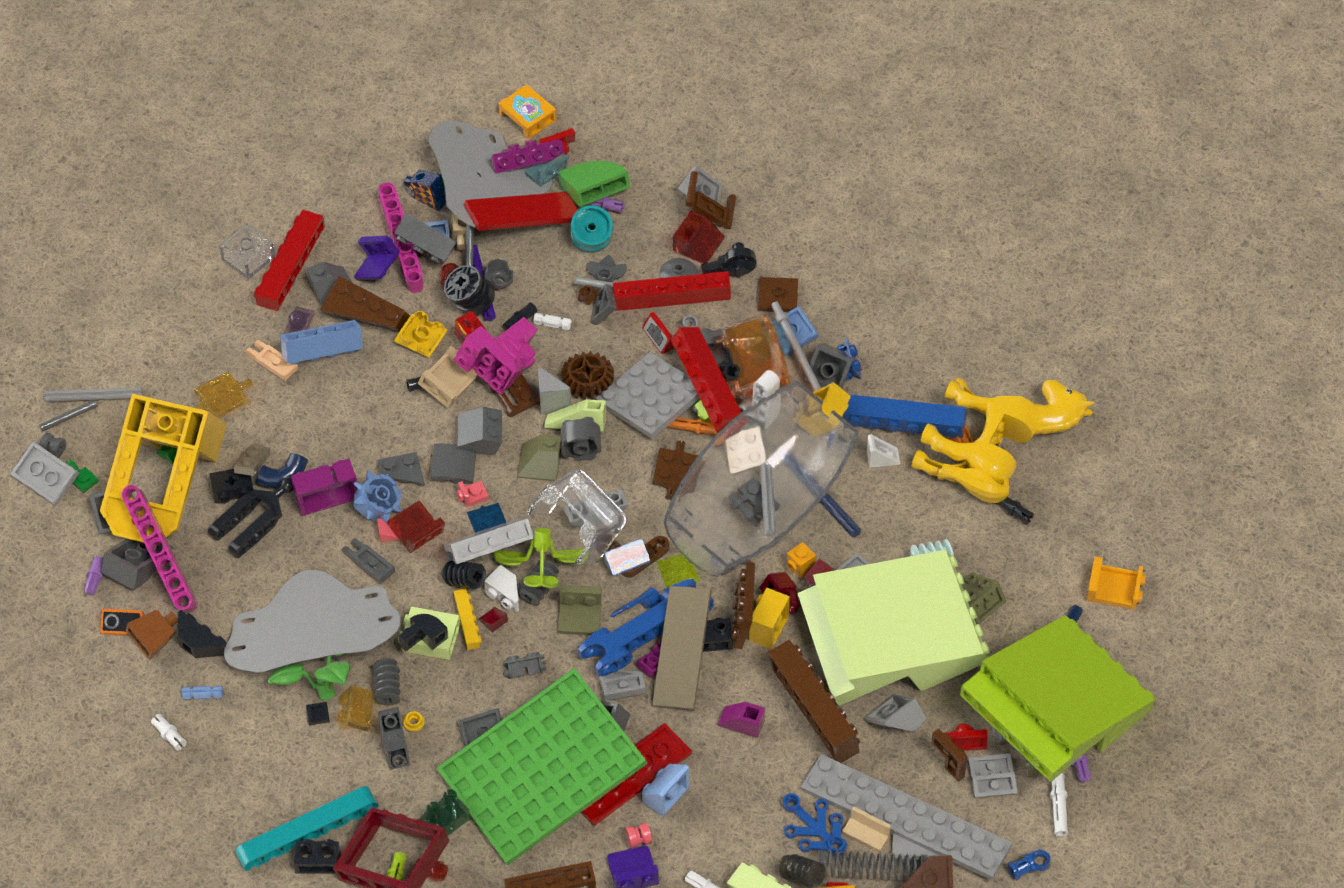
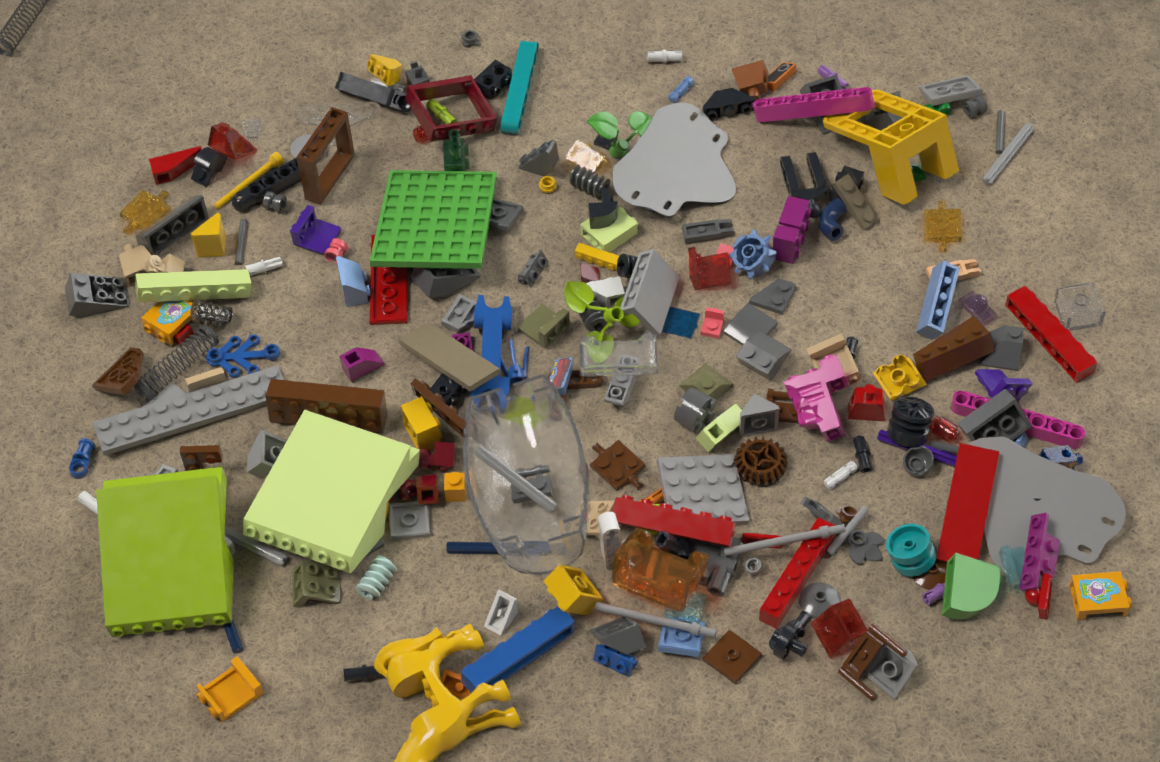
camera: 130 degrees right, 0 degrees up
(631, 278) = (823, 532): none -> light grey bar

